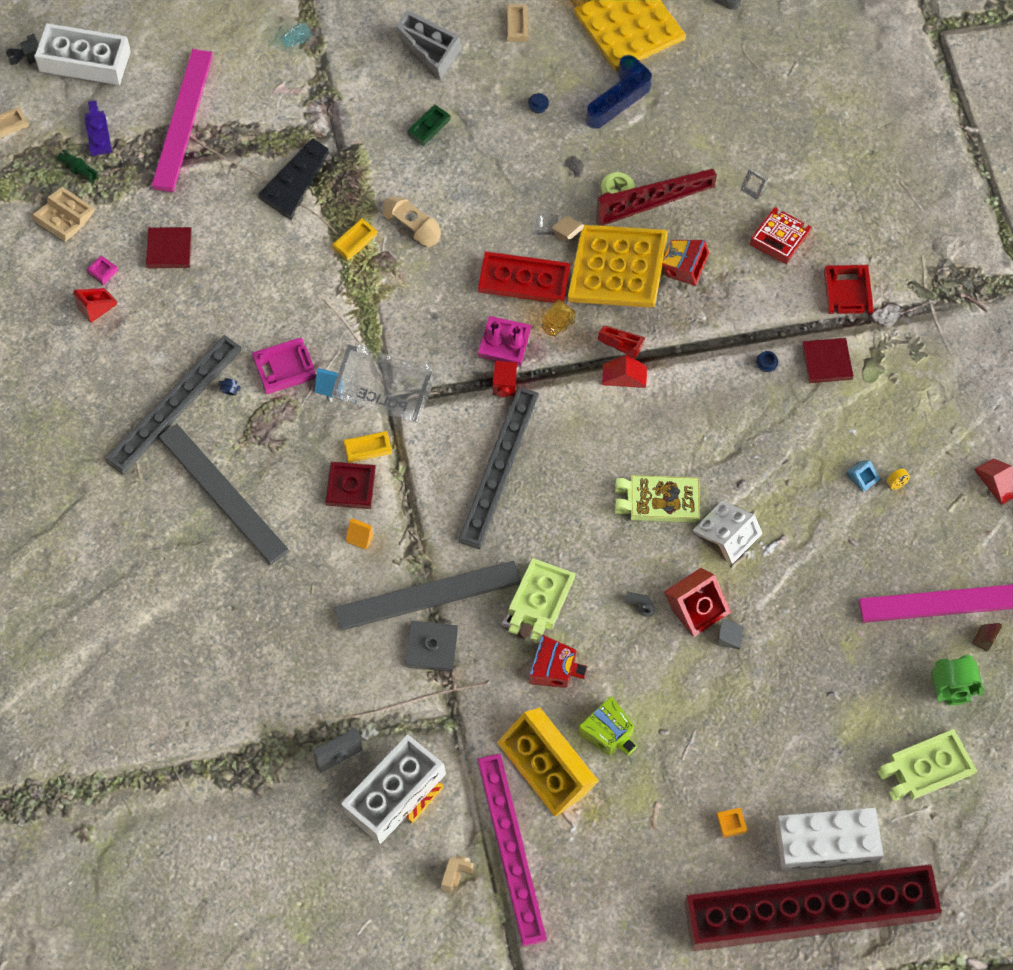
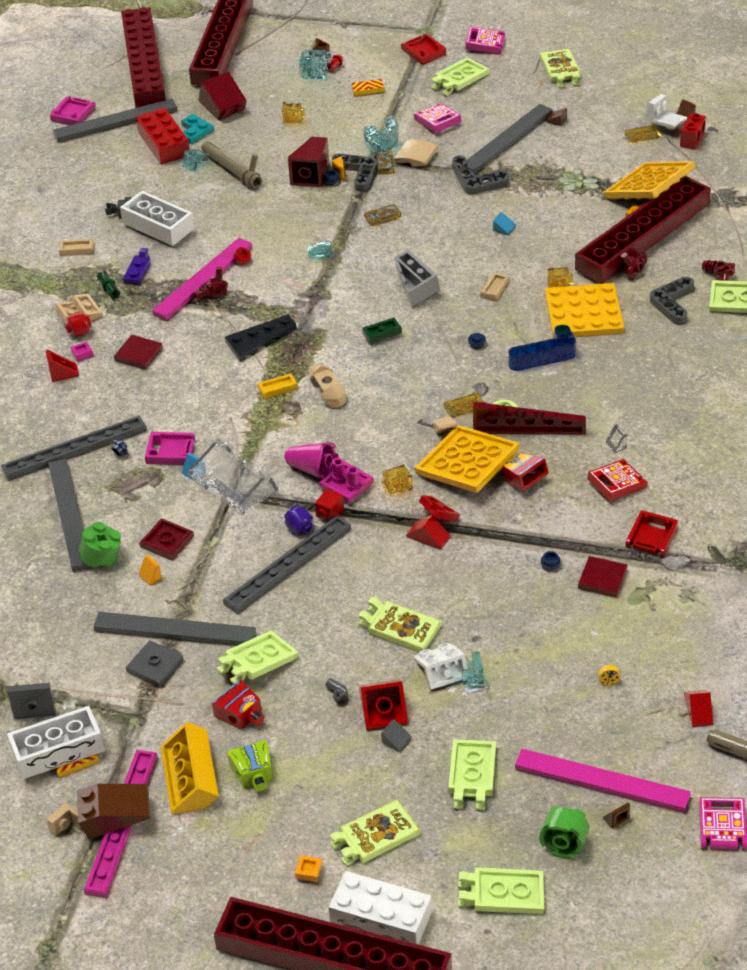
camera: 30 degrees right, 20 degrees down
(79, 236) = (78, 324): none -> red head
(207, 130) = (214, 288): none -> dark red piece
(212, 74) = (242, 256): none -> red tile
(290, 526) = (99, 545): none -> bright green brick
(367, 446) = (196, 518): yellow tile -> none
(454, 326) = (312, 458): none -> dark pink cone
(483, 410) = (298, 520): none -> dark purple head
(501, 840) = (112, 807): none -> reddish brown slope
(523, 277) = (389, 445): red plate -> none
(570, 194) = (461, 405): none -> clear yellow tile
(768, 524) = (473, 675): none -> clear light blue bracket
(772, 752) = (375, 833): none -> yellowish green tile
(826, 644) = (472, 771): none -> yellowish green tile
(863, 475) = (583, 665): dark azure slope -> none

